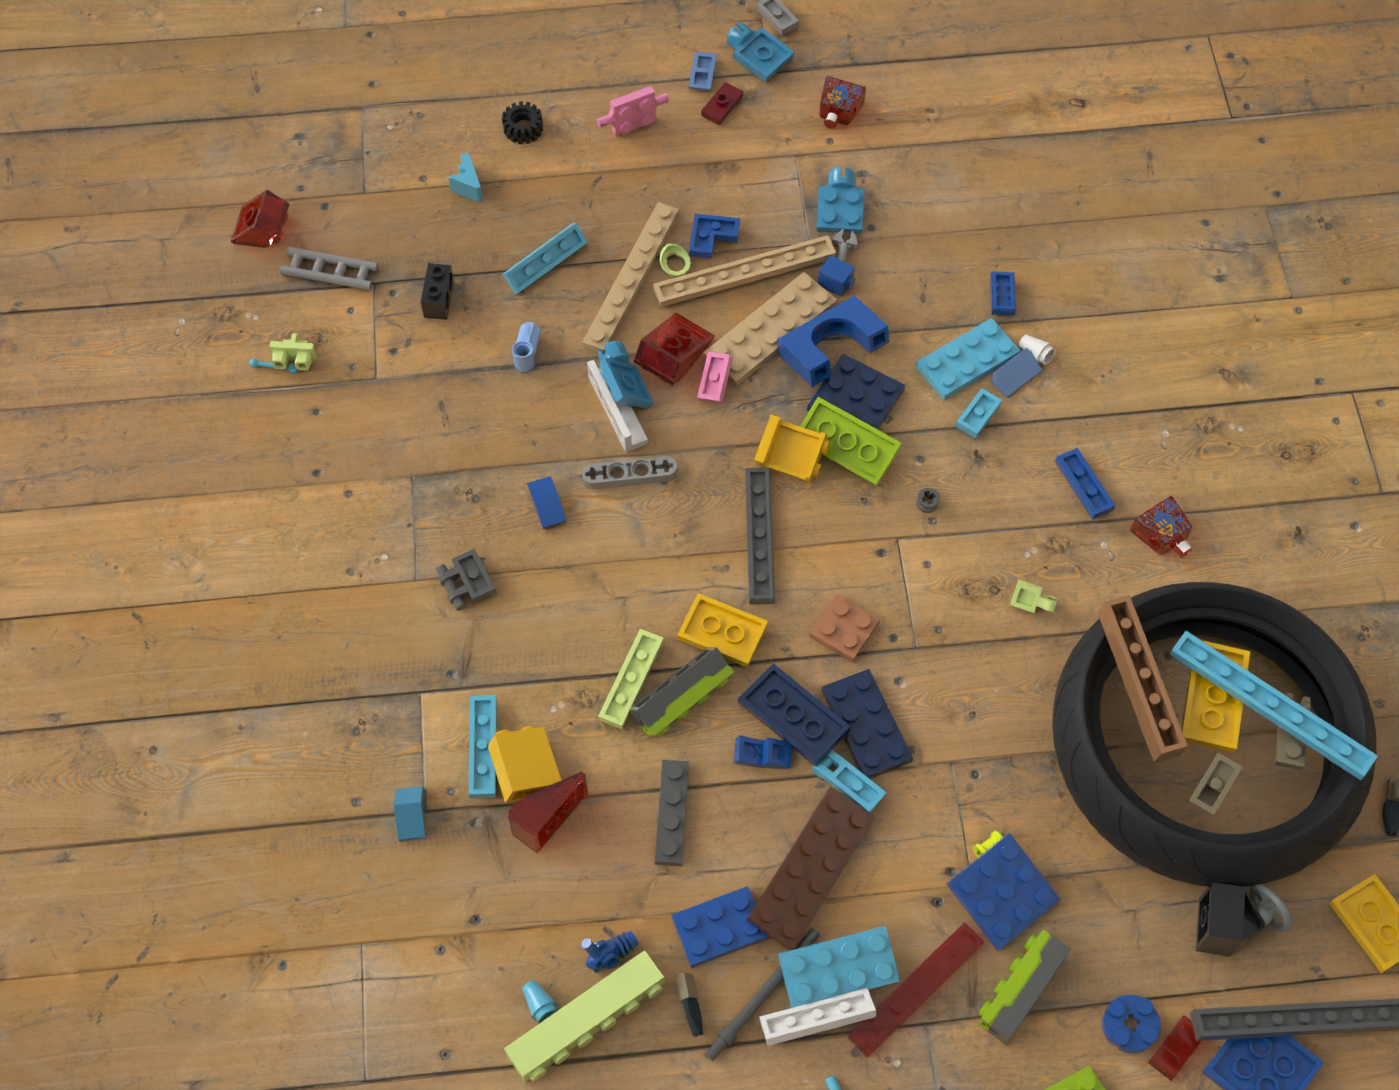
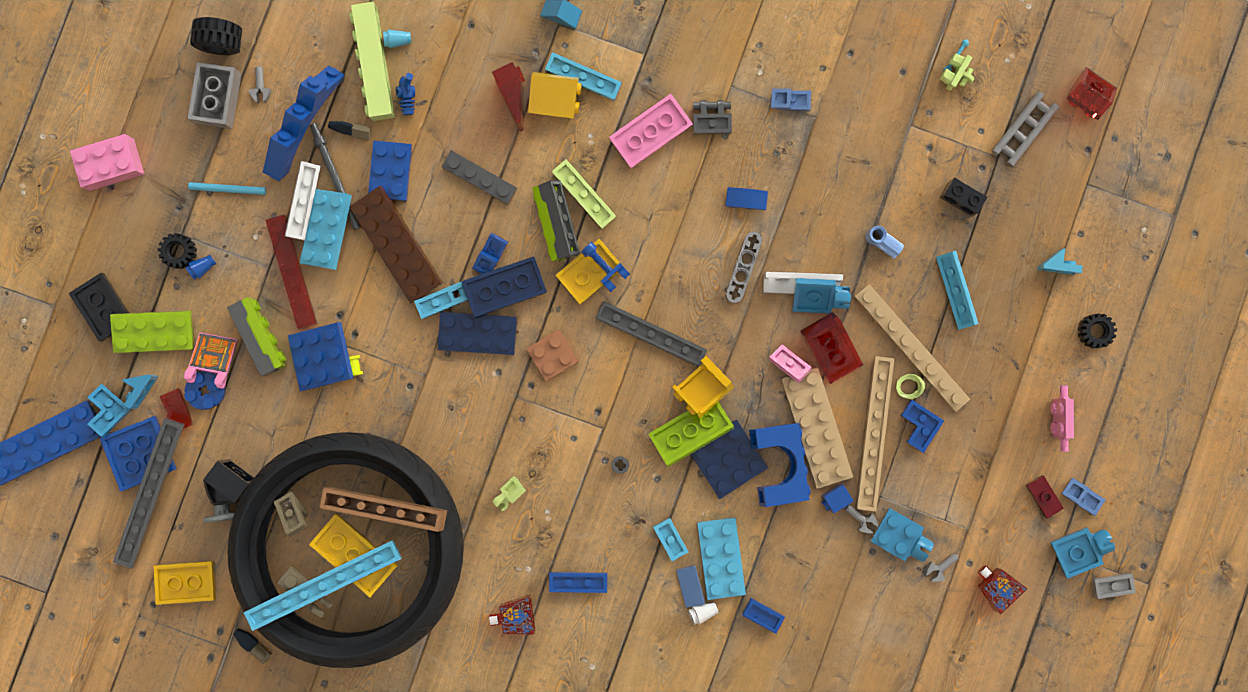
camera: 115 degrees right, 25 degrees up
(403, 506) = (791, 100): none -> medium blue slope
(515, 639) = (650, 131): none -> bright pink plate
(697, 633) = (590, 250): none -> blue bar
(714, 1060) = (296, 119): none -> blue arch
(853, 162) = (940, 568): none -> light grey bar
(1082, 1034) = (211, 355): none -> flag

